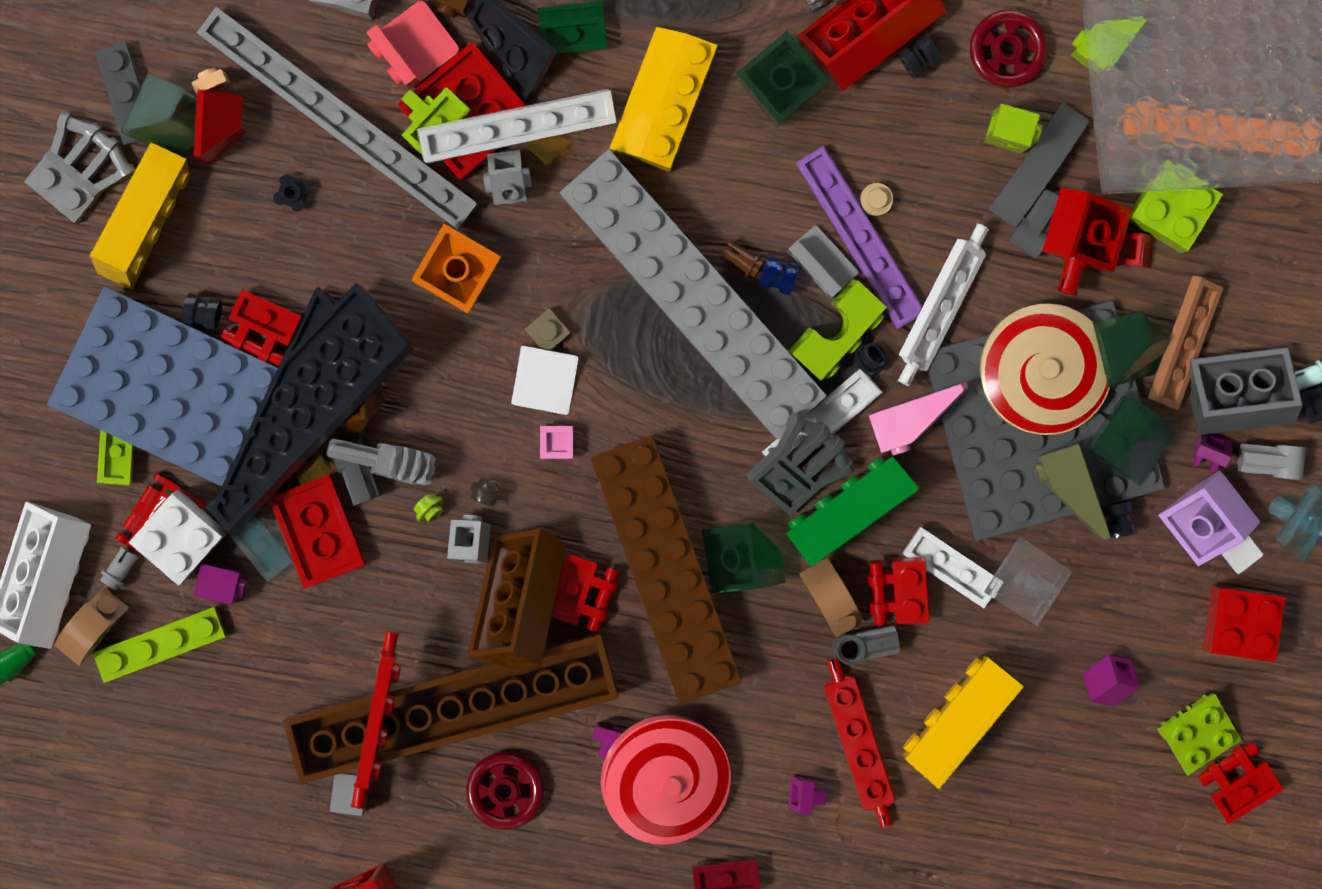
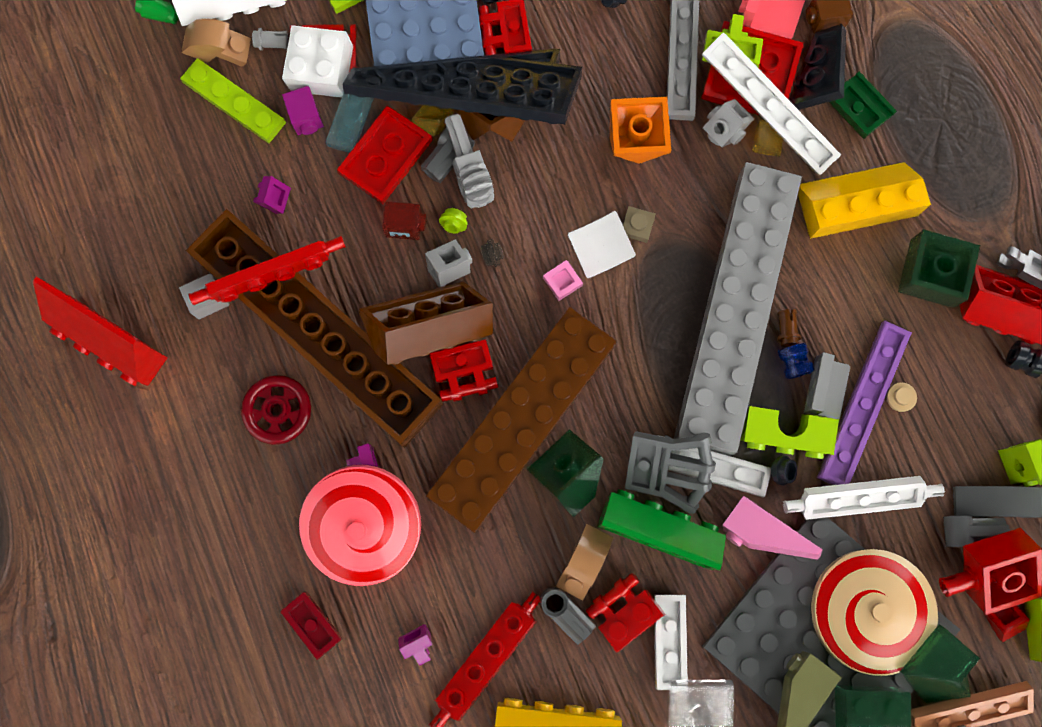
camera: 55 degrees right, 10 degrees down
(288, 666) = (272, 195): none -> magenta tile
(398, 556) = (403, 220): none -> clear red brick

